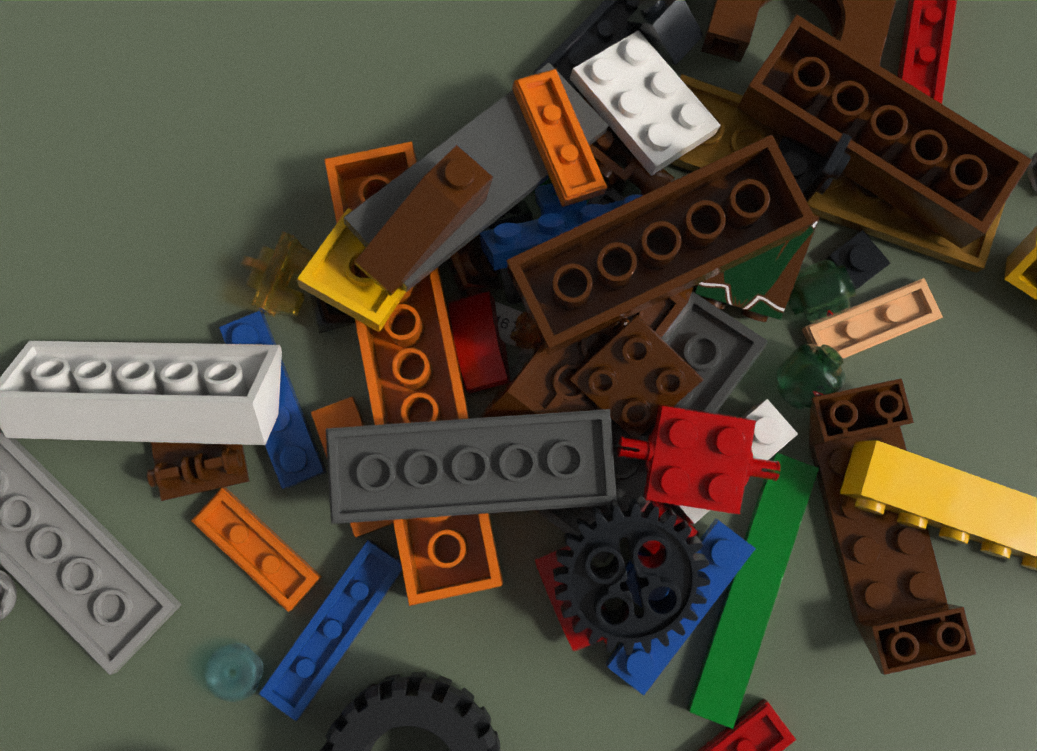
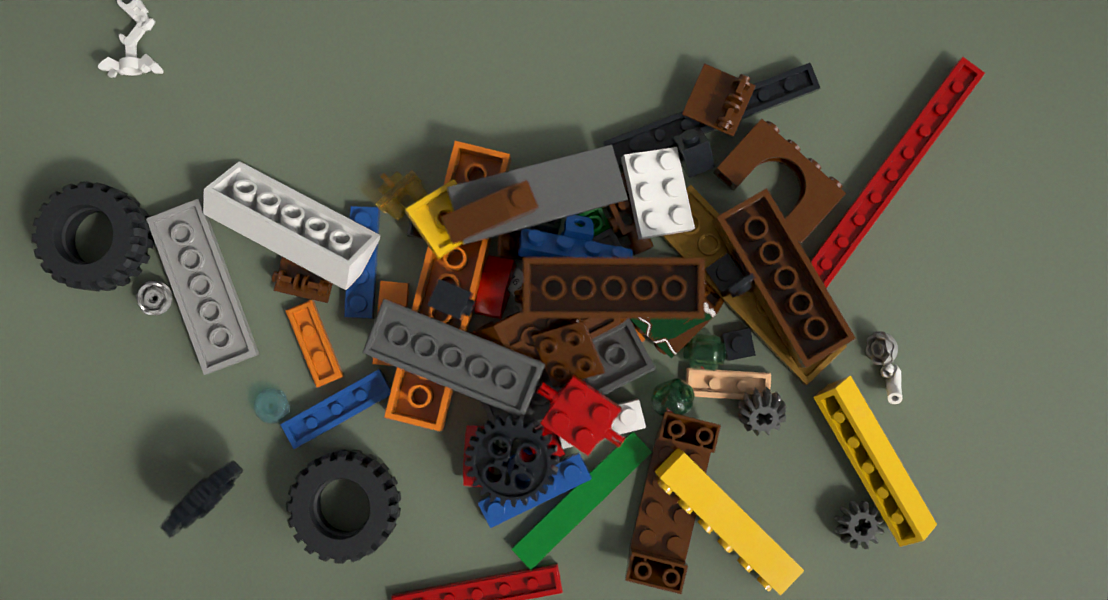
camera: 30 degrees right, 5 degrees up
(427, 381) = (452, 300): none -> black brick
(559, 137) = (593, 194): orange tile -> none
(944, 333) = (762, 411): none -> dark grey gear

